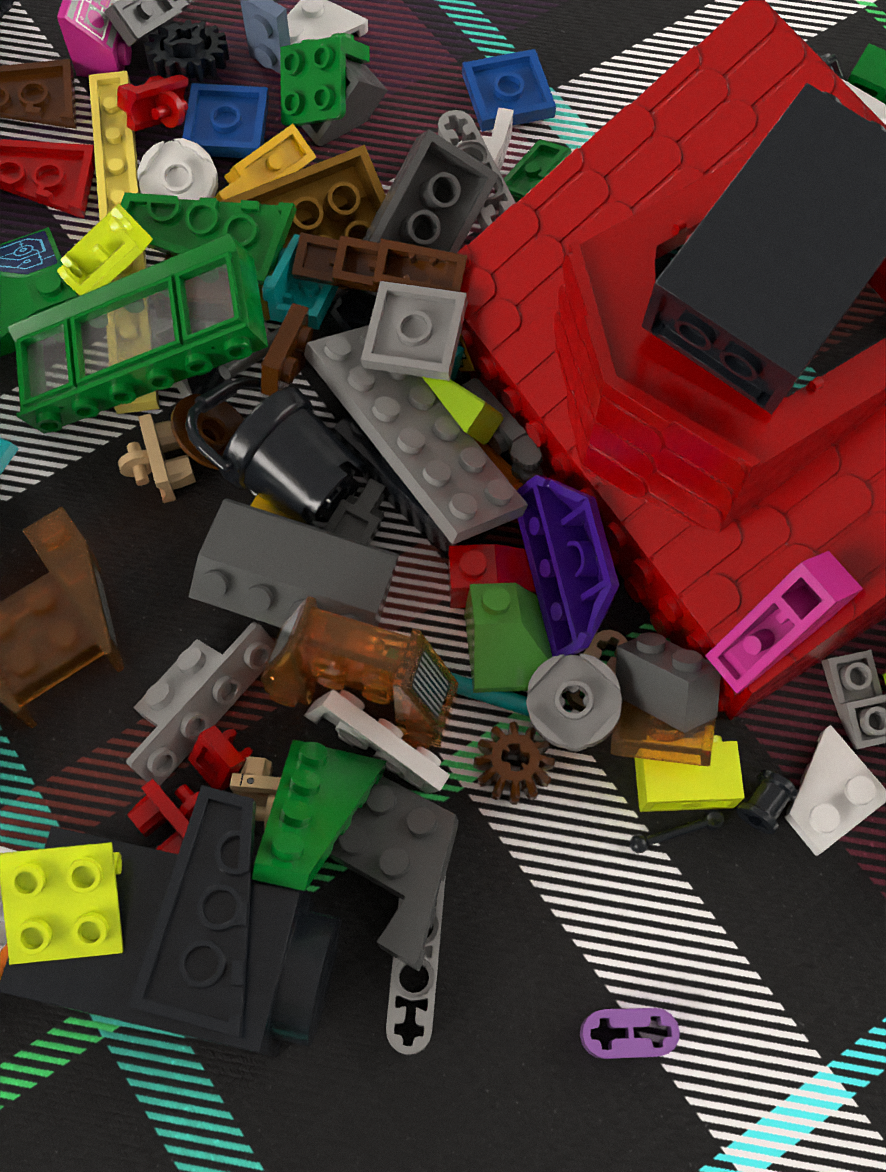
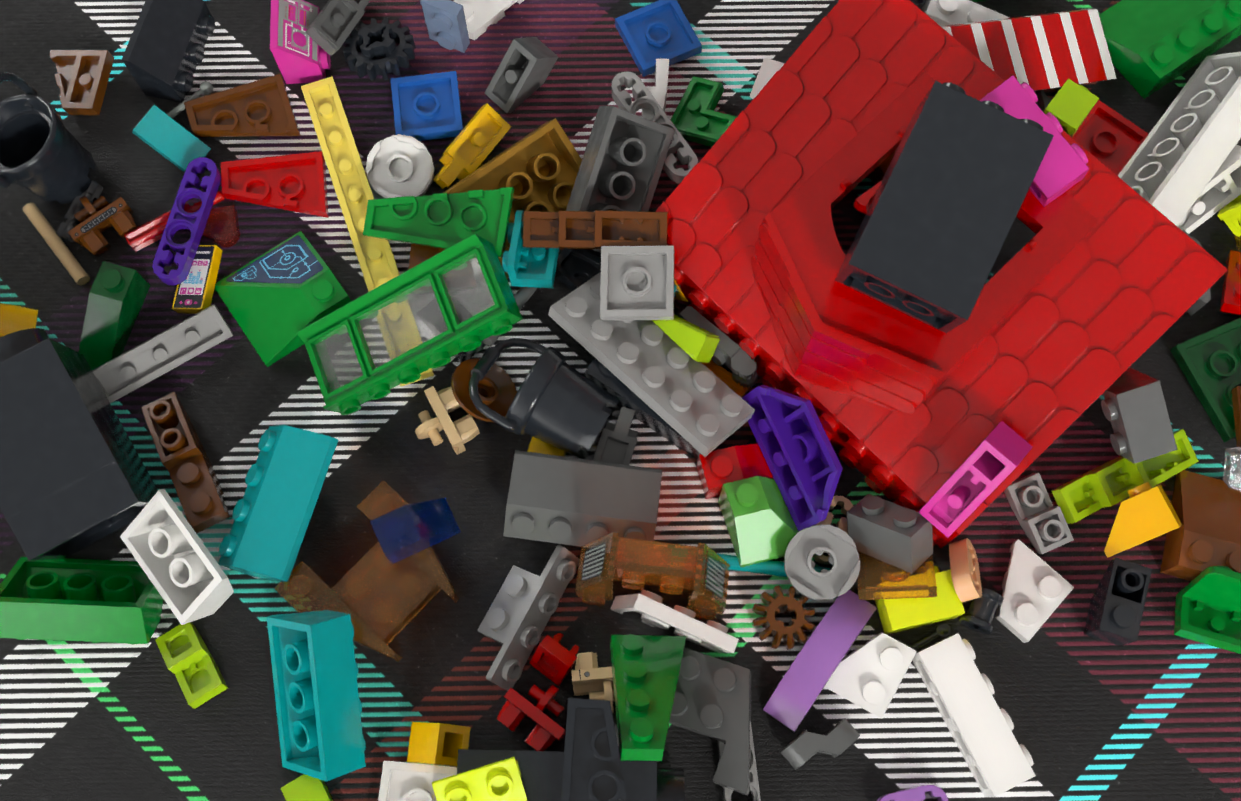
camera: 10 degrees left, 5 degrees up
(34, 822) = (437, 743): none -> yellow brick
(78, 563) = (414, 528): none -> clear blue slope
(104, 252) = (363, 257): neon yellow hinge -> none
(154, 102) = (366, 104): red hips -> none
(286, 353) = (533, 326): reddish brown wing -> none
(316, 78) = (497, 58): green bracket -> none
(516, 924) = (808, 744): none -> dark grey piece
(547, 823) = (818, 659): none -> medium lavender slope
(610, 853) = (872, 673): none -> white wing
(732, 931) = (973, 716): none -> white brick
(754, 747) = (965, 570): none -> light nougat beam

